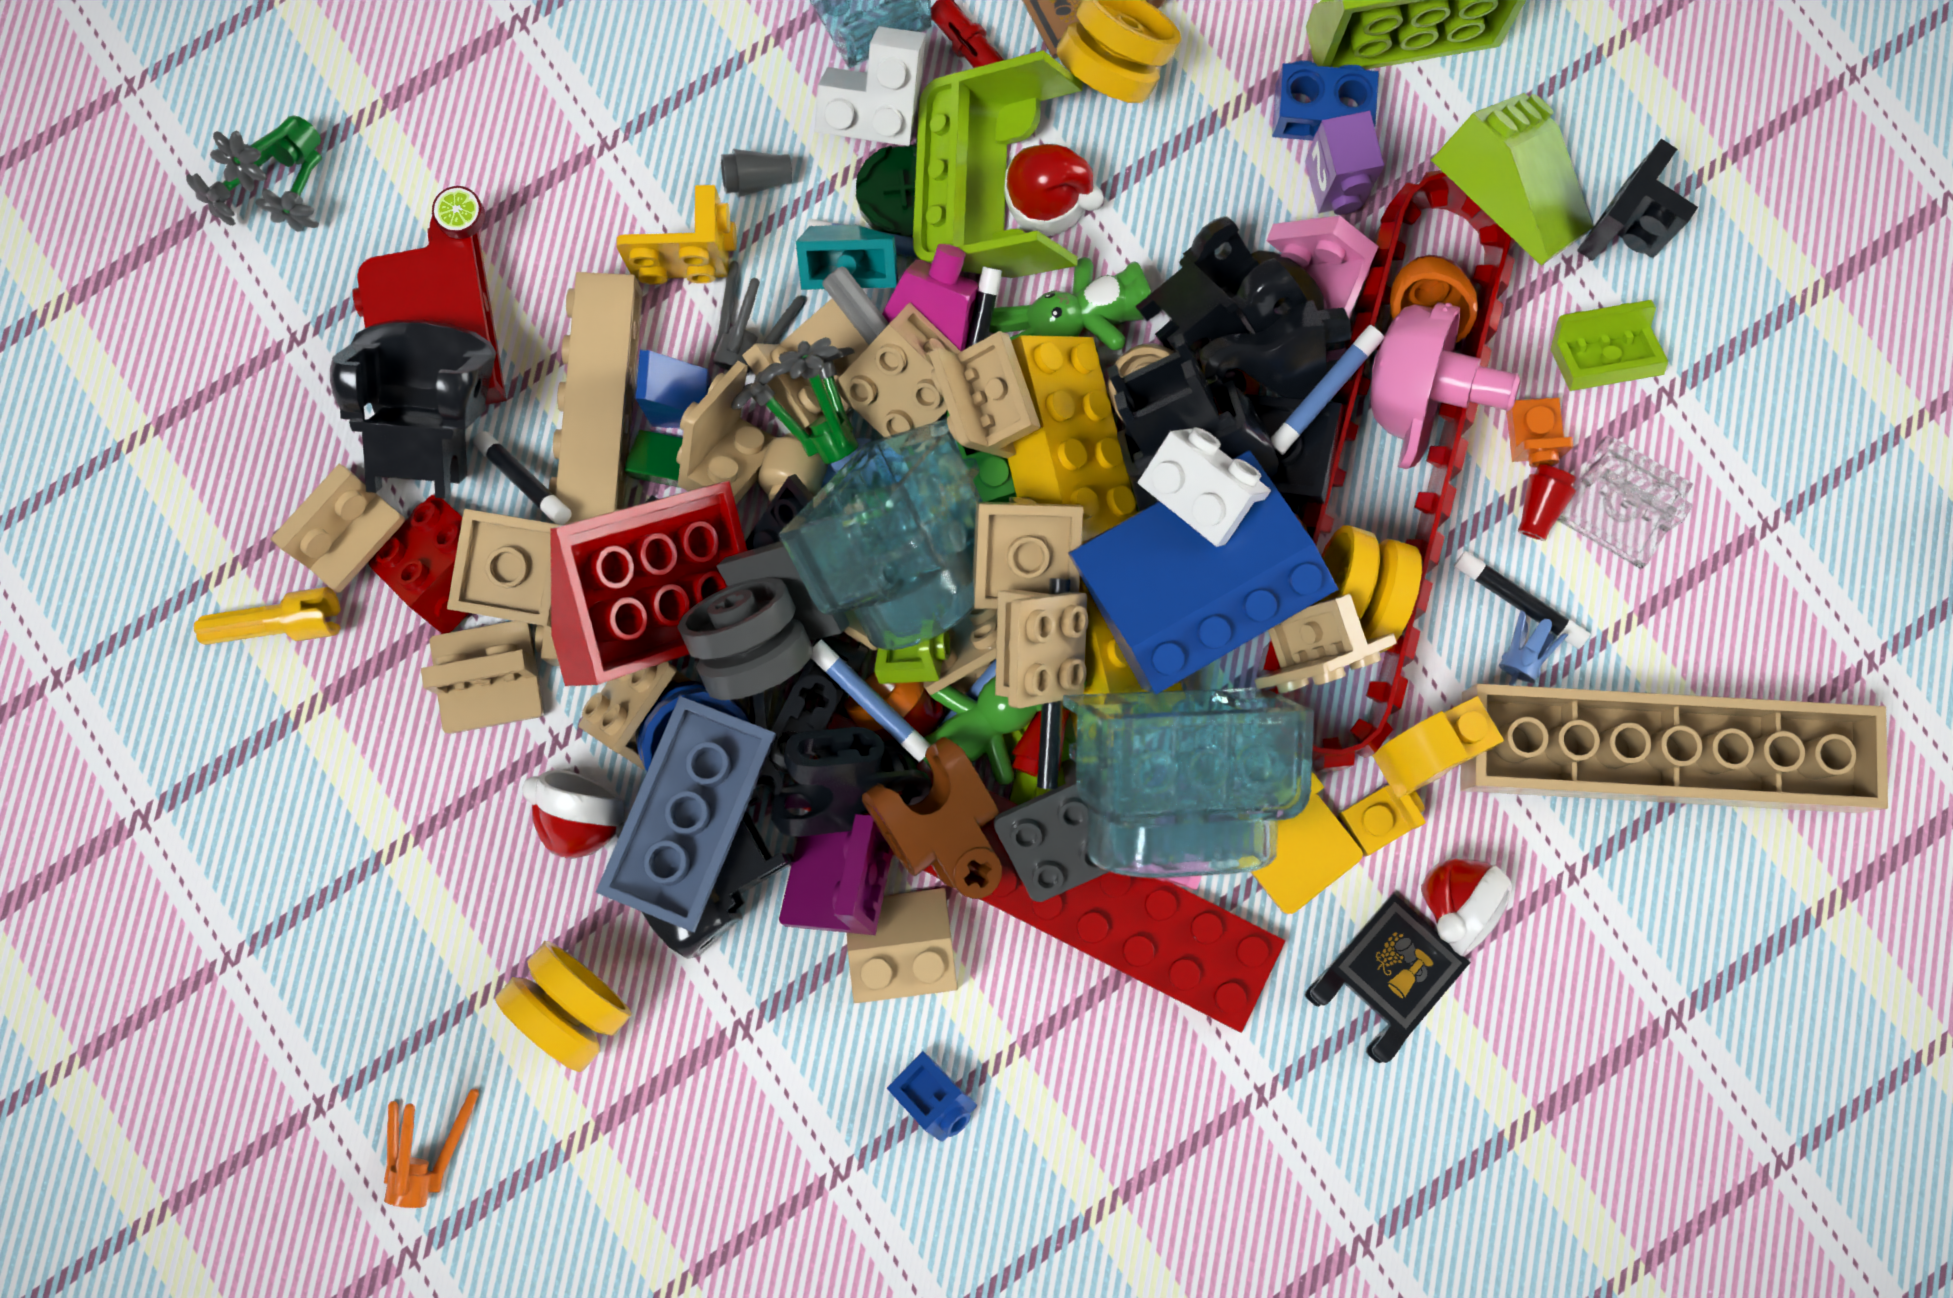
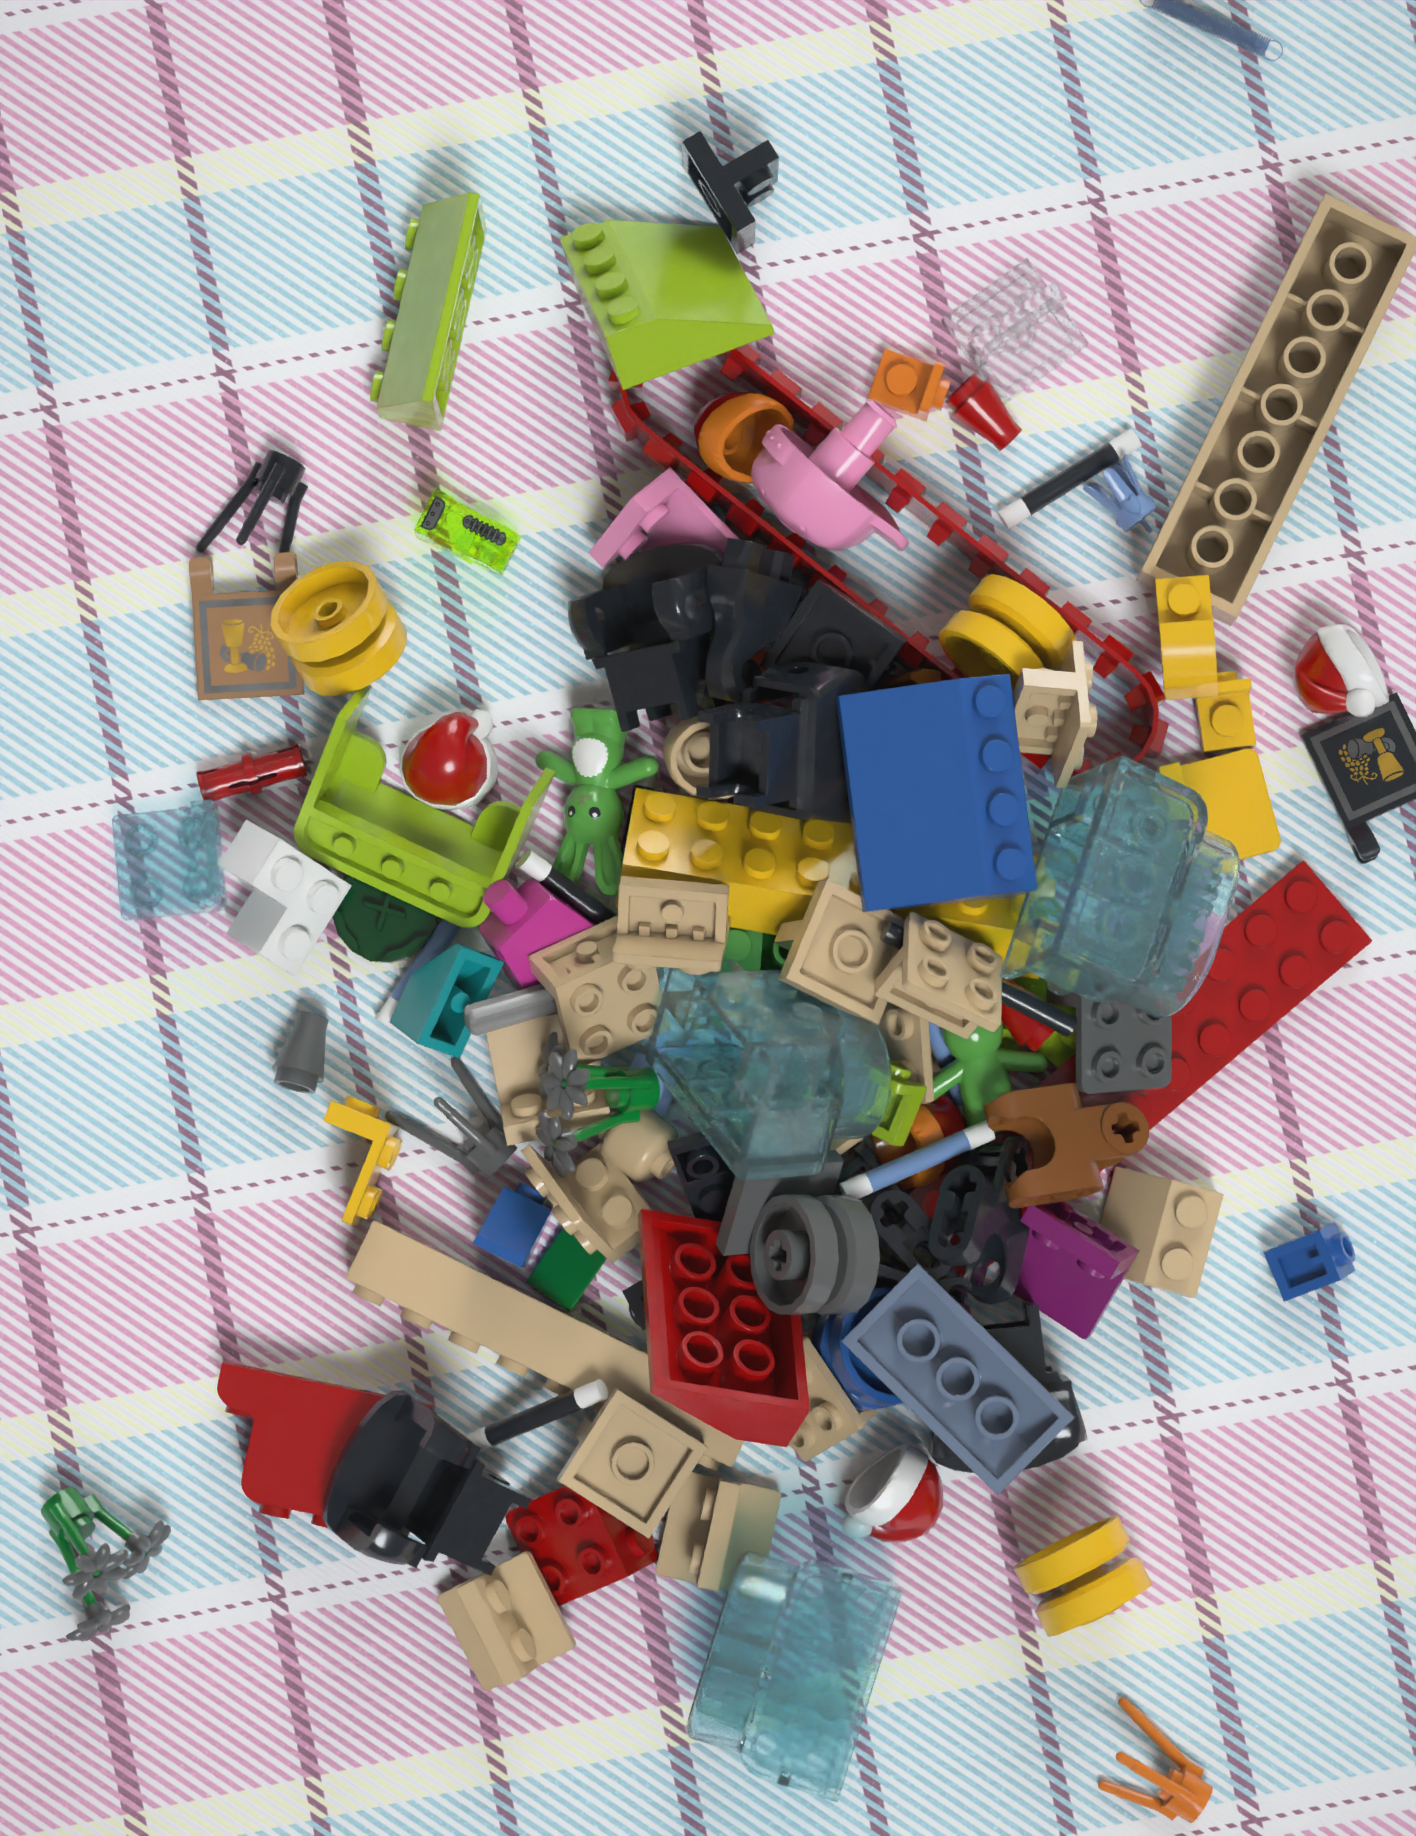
camera: 65 degrees left, 5 degrees up
(298, 615) = (579, 1699): yellow piece -> none
(374, 781) = (793, 1669): none -> clear light blue brick
(458, 212) = (234, 1372): tile -> none
(1203, 483) = (858, 757): white bracket -> none
(1243, 121) = (466, 533): none -> clear neon green leg
(1323, 88) = (491, 445): blue brick -> none
(1326, 389) = (800, 590): medium blue bar -> none
(1344, 163) = (561, 456): medium lavender brick -> none
(1608, 346) = (855, 276): lime bracket -> none

